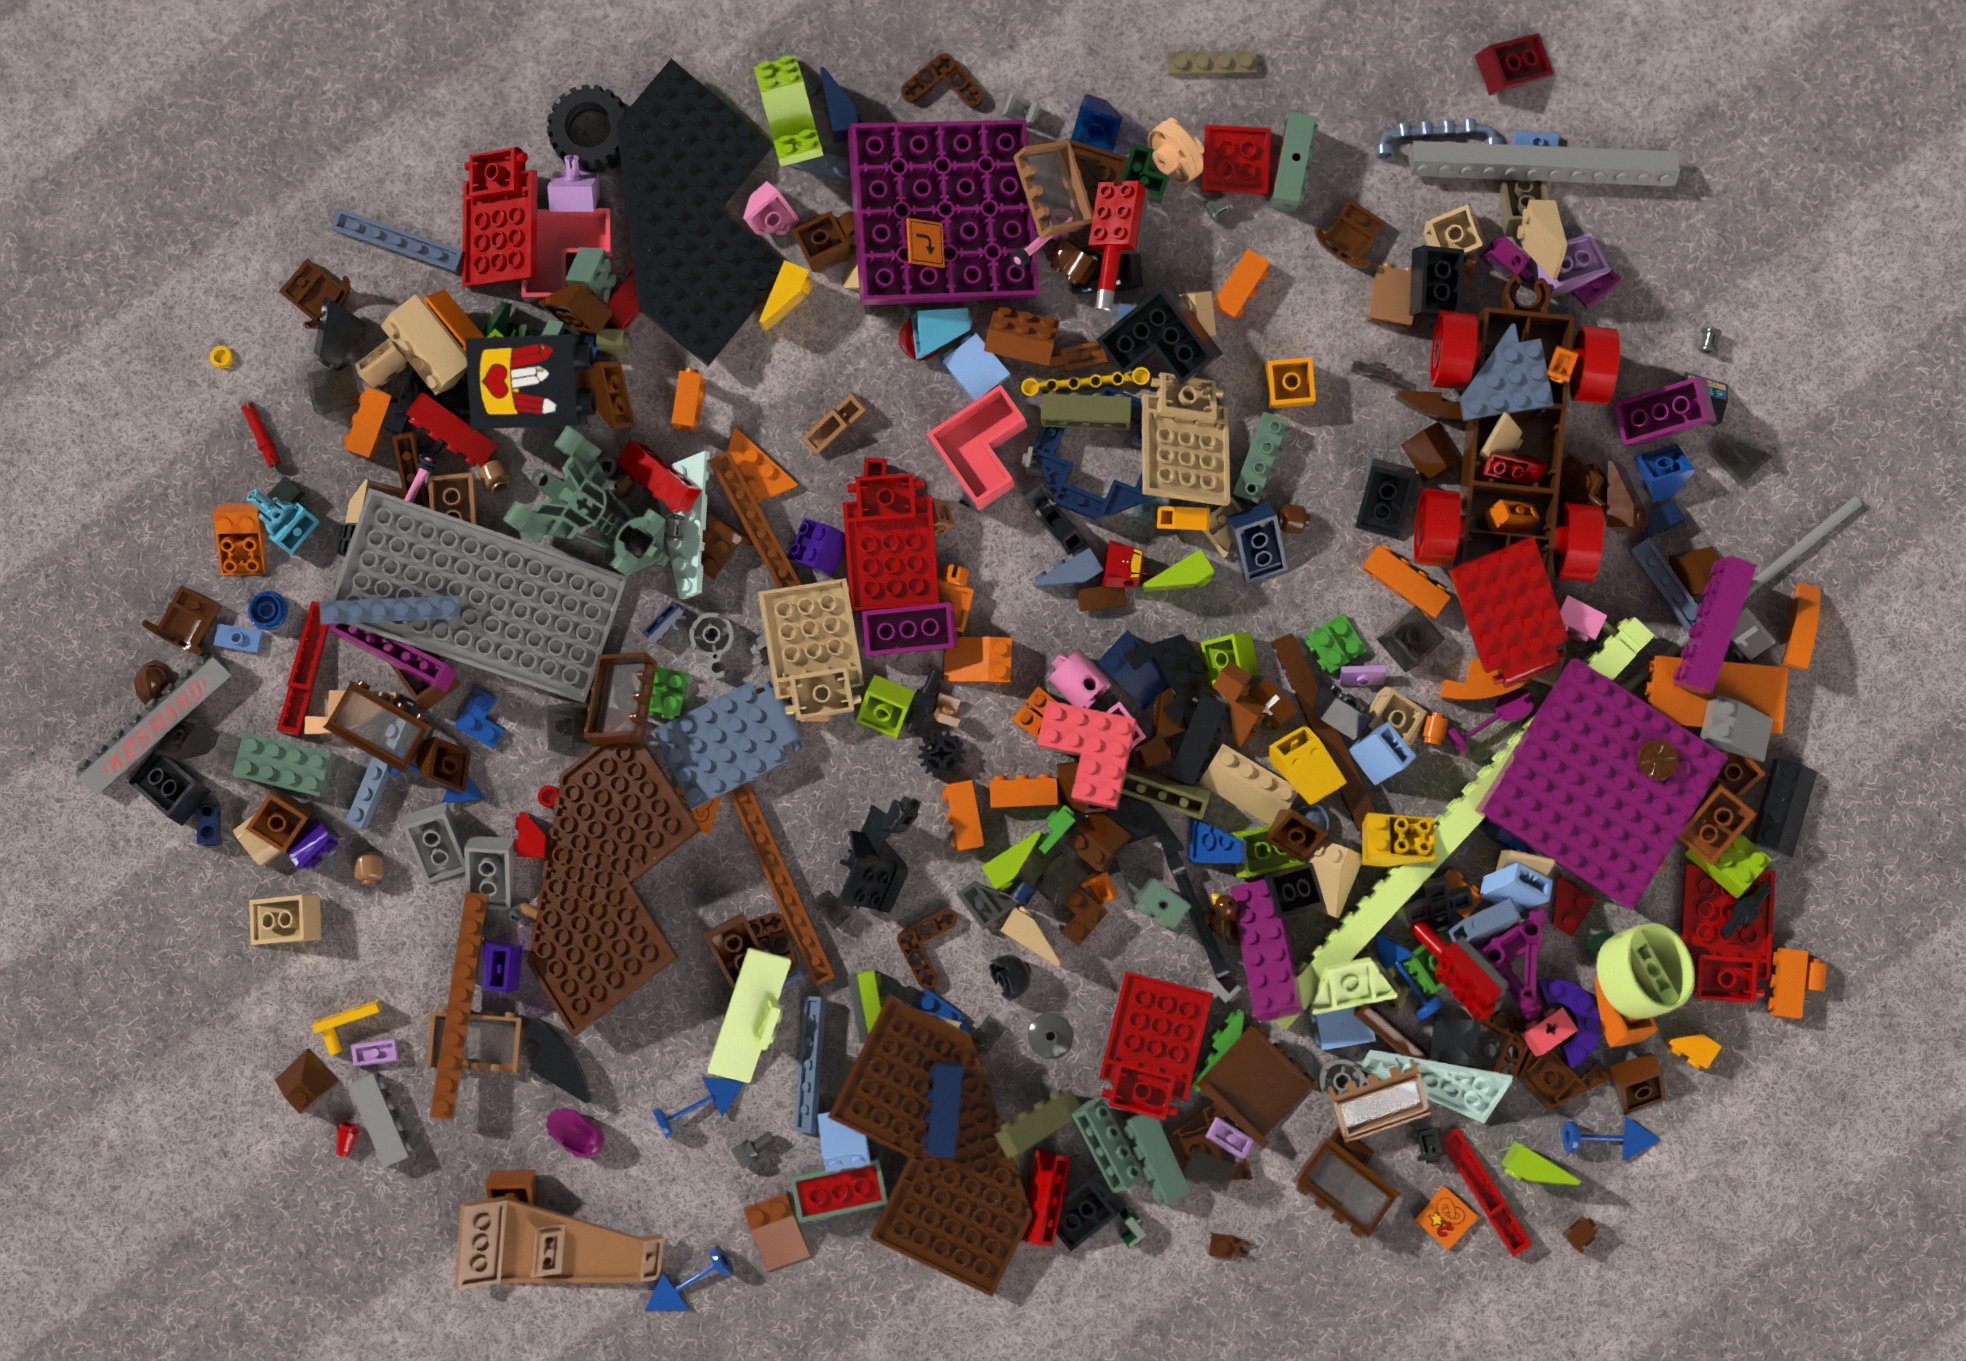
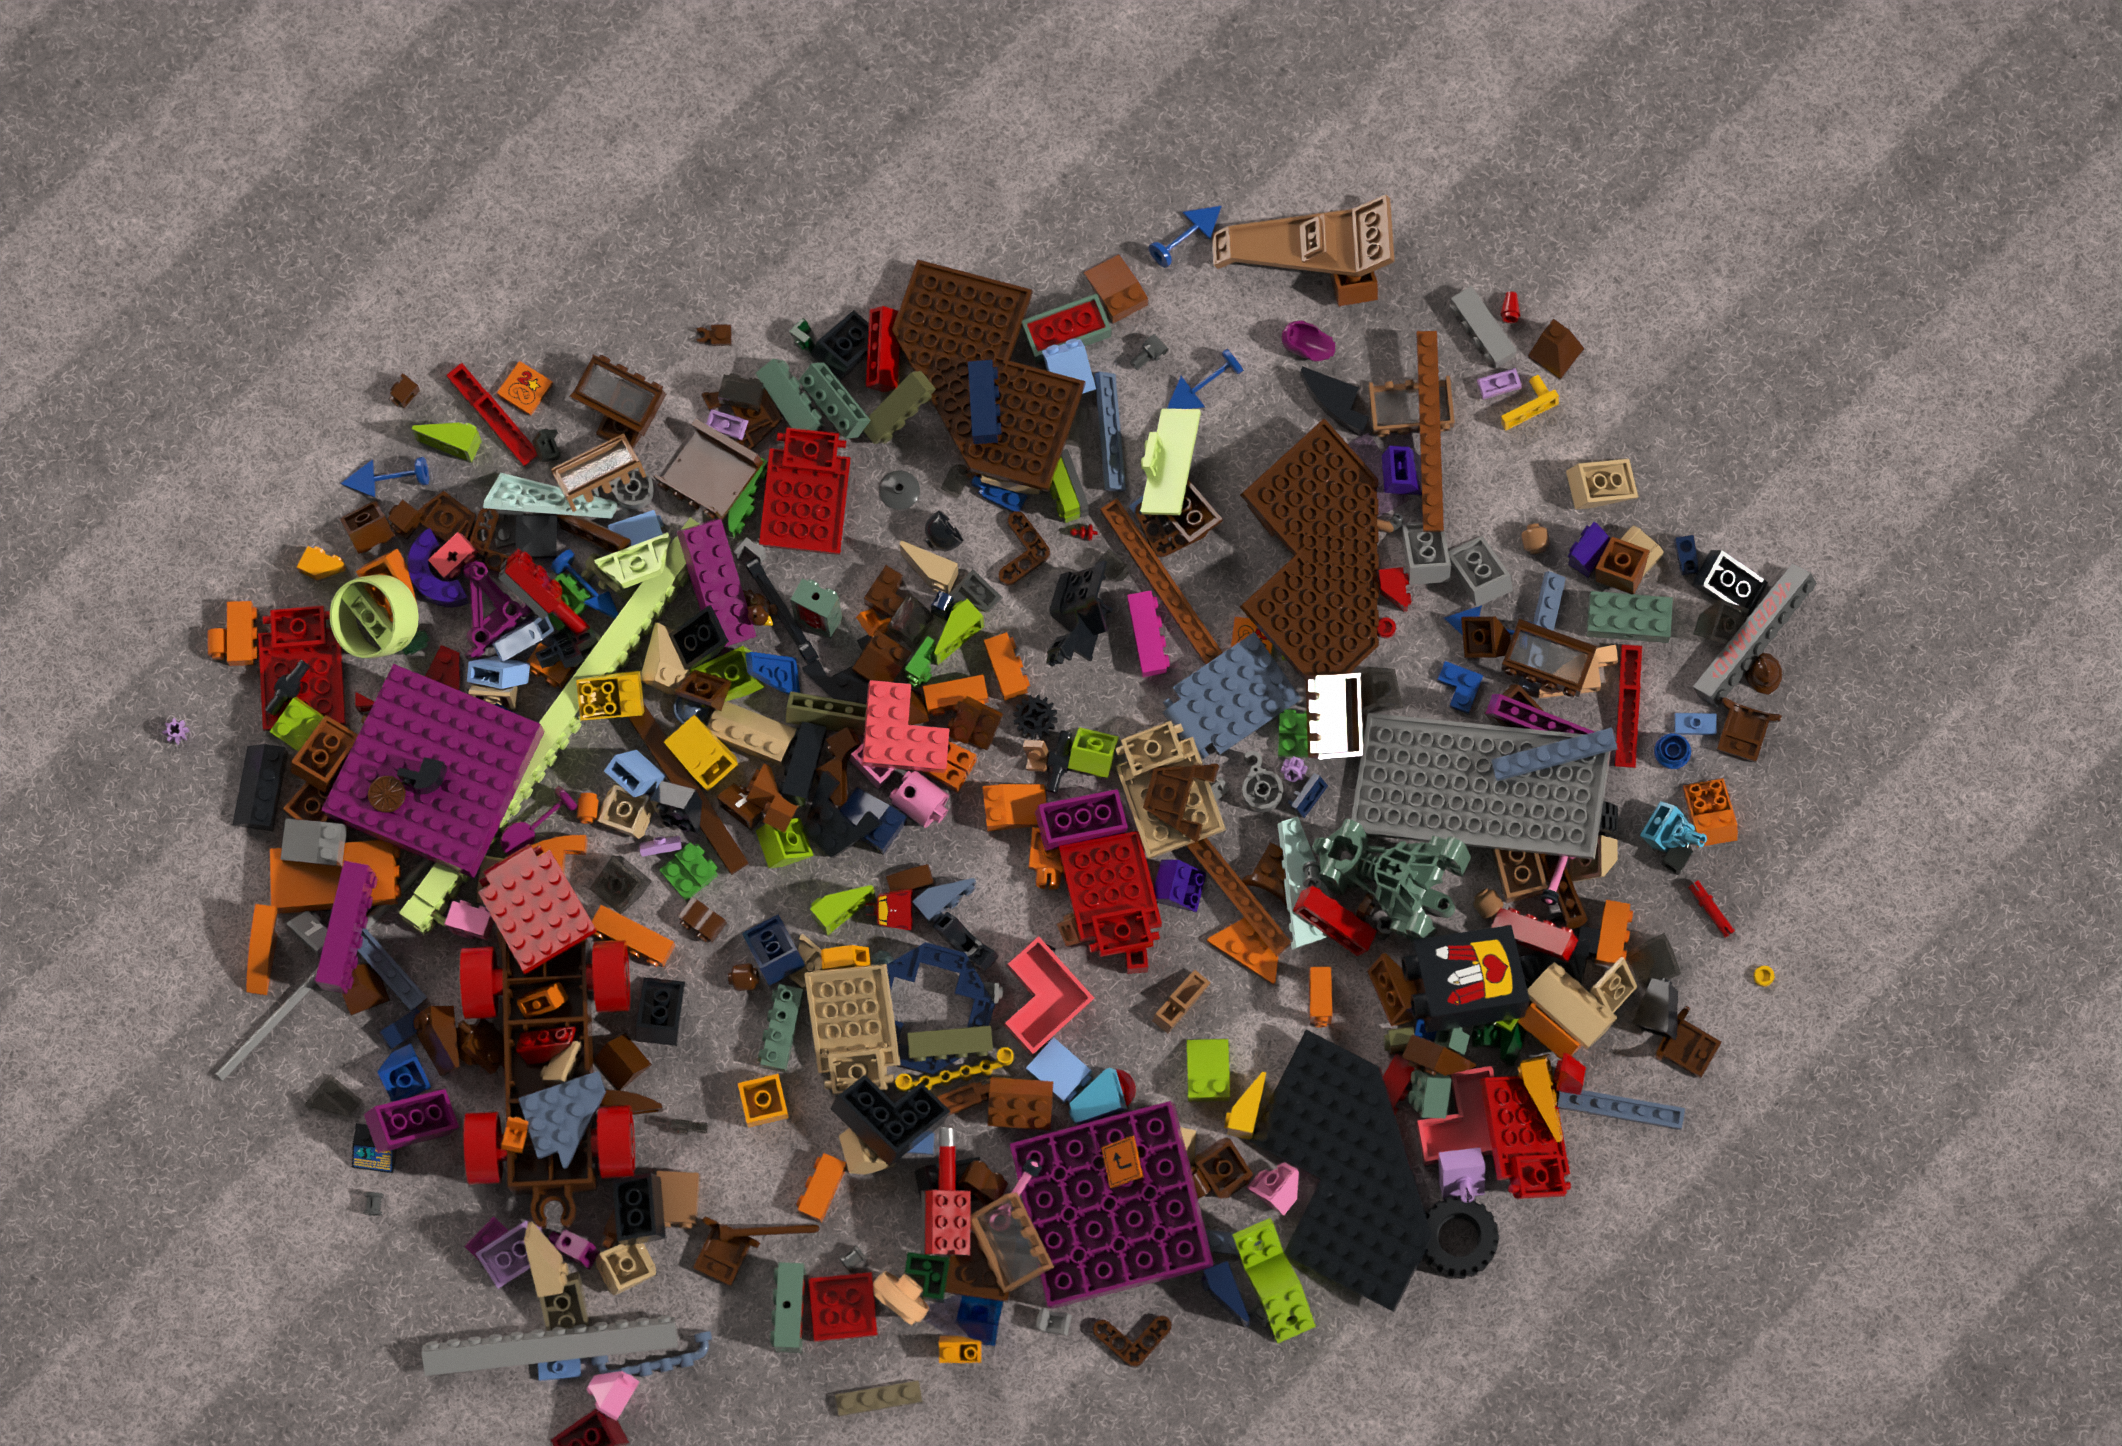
camera: 175 degrees right, 10 degrees down
(443, 275) = (1569, 1075): none -> red slope
(476, 268) = (1538, 1080): none -> light orange wedge
(674, 653) = (1294, 769): none -> lavender gear
(806, 828) = (1147, 633): none -> dark pink brick
(810, 639) = (1170, 792): none -> reddish brown wing
(819, 346) = (1208, 1070): none -> lime slope
(851, 953) = (1084, 532): none -> red hair
(1007, 755) = (974, 723): none -> reddish brown plate
(1123, 94) = (959, 1350): none -> light orange slope
(1329, 588) = (702, 920): none -> reddish brown brick
(1346, 249) = (726, 1233): none -> reddish brown piece
(1487, 103) = (612, 1392): none -> bright pink slope
(1598, 1085) = (403, 516): none -> reddish brown brick
(1611, 767) = (427, 779): none -> black brick
(1663, 883) = (363, 703): none -> red slope
(1862, 883) = (174, 736): none -> lavender gear

